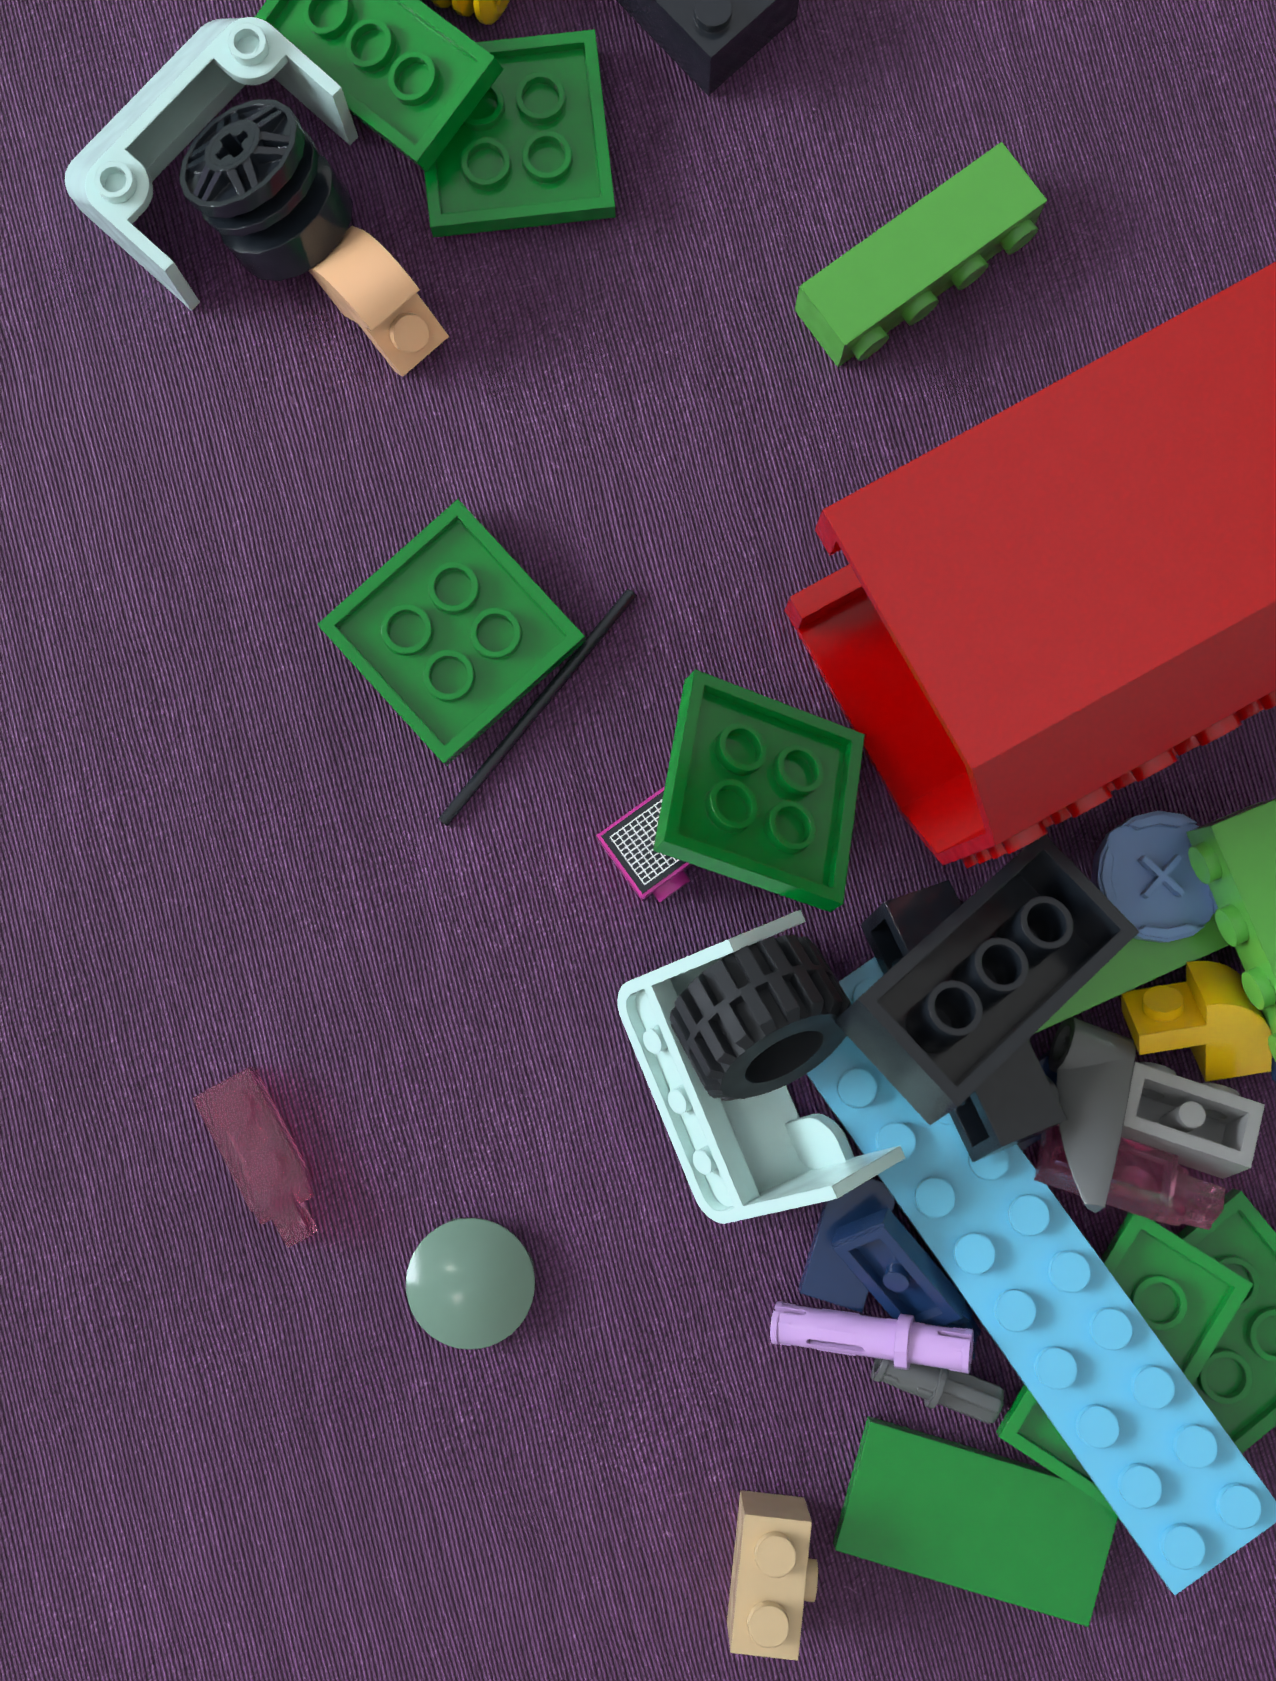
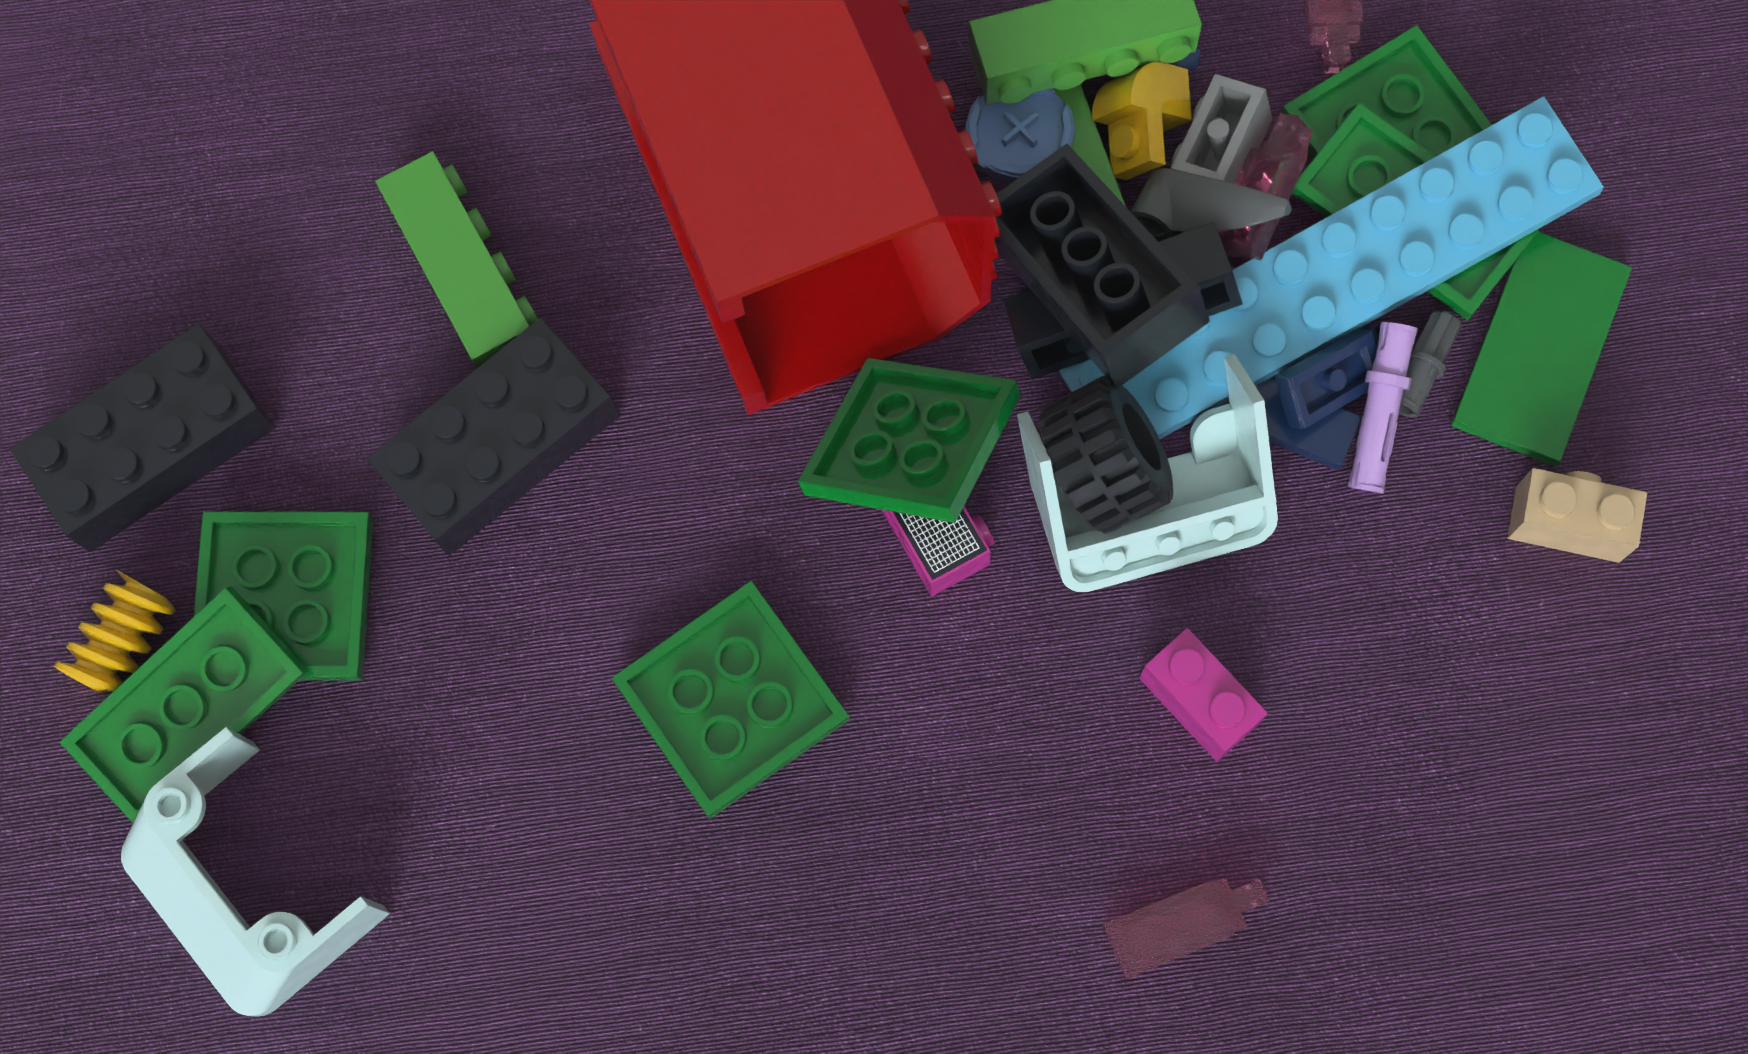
camera: 80 degrees left, 10 degrees down
(266, 190) = (304, 810): black wheel -> none
(381, 298) = (410, 727): light nougat brick -> none
(470, 1283) = (1313, 746): sand green dish -> none
(508, 1156) = (1202, 694): none -> dark pink brick
(537, 707) = (808, 637): black piece -> none
(716, 327) = (494, 436): none -> black brick

